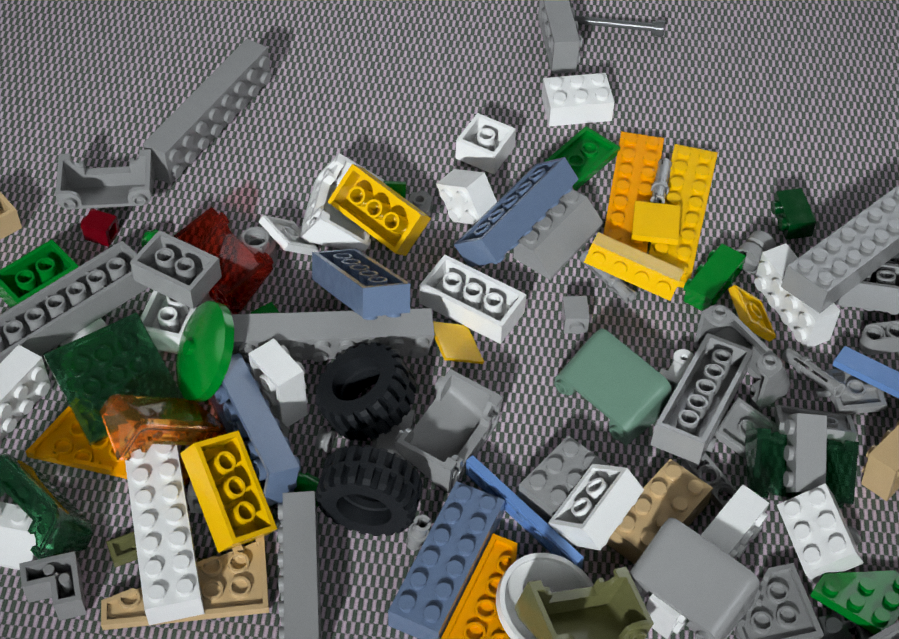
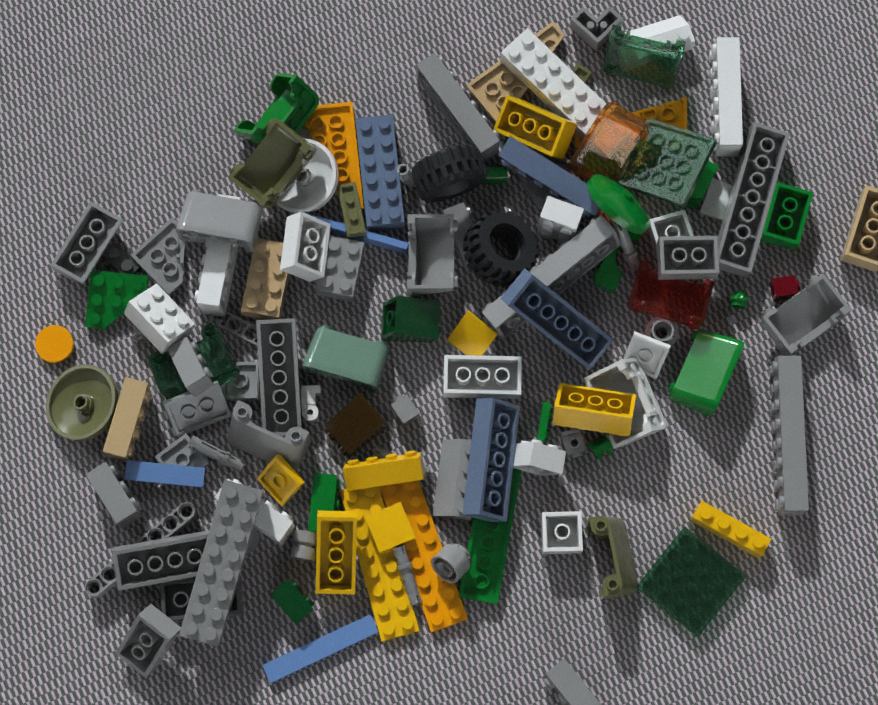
camera: 150 degrees right, 25 degrees up
(239, 187) = (706, 371): none -> green windscreen
(325, 80) = (730, 529): none -> yellow brick
(391, 66) = (690, 581): none -> clear green plate
(437, 232) = (545, 417): none -> green plate
(460, 88) = (624, 580): none -> olive windscreen
(511, 530) = (351, 210): none -> olive tile
(524, 387) = (410, 320): none -> dark green slope
(577, 99) = (520, 630): white brick -> none
(611, 162) = (451, 562): none -> light grey piece
(640, 320) = (355, 426): none -> dark brown slope
(726, 219) = (336, 552): none -> yellow brick
(782, 176) = (320, 648): none -> medium blue tile

